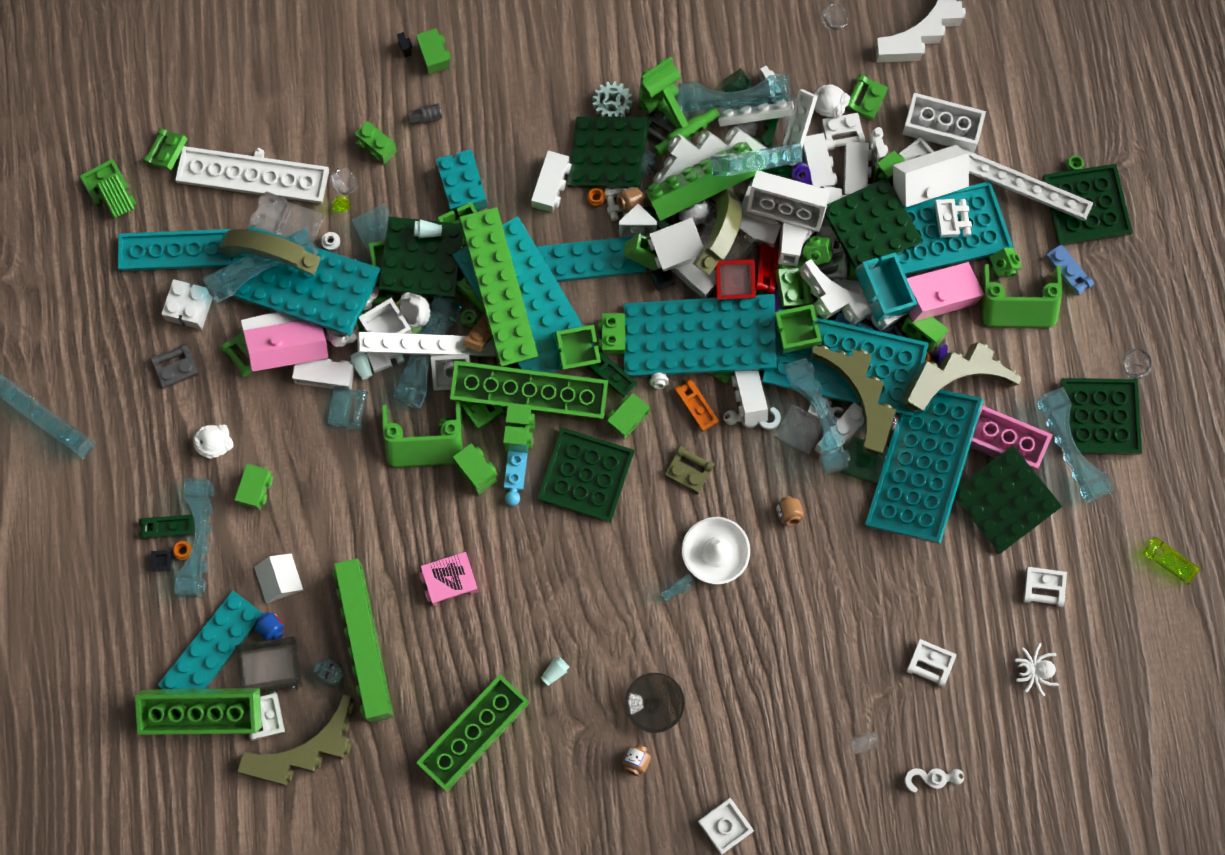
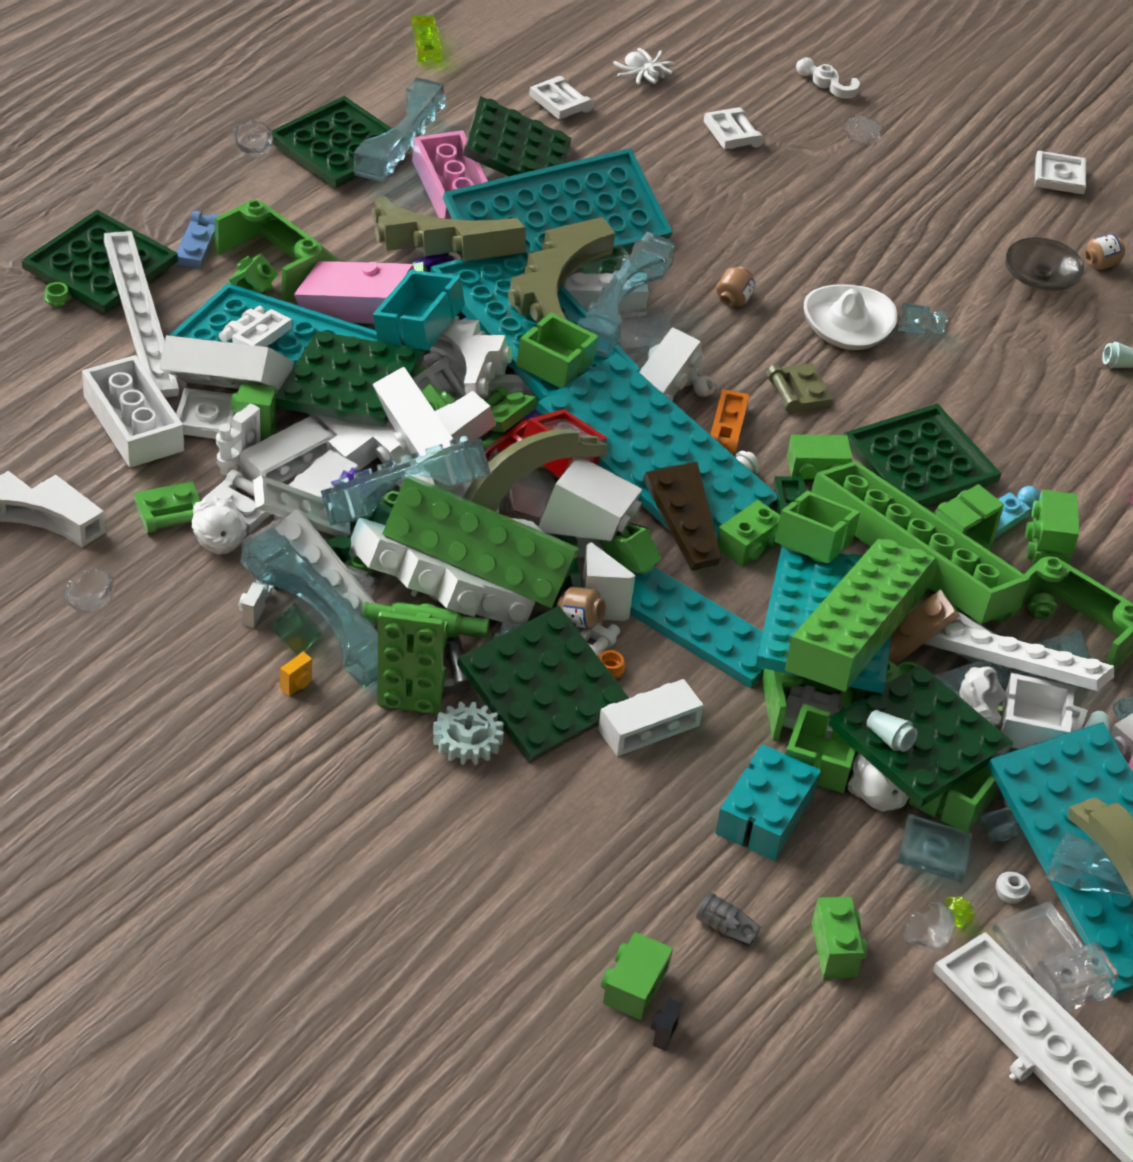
camera: 140 degrees left, 30 degrees down
(654, 309) = (685, 509): none -> dark brown wing
(708, 62) = (296, 674): none -> light orange plate

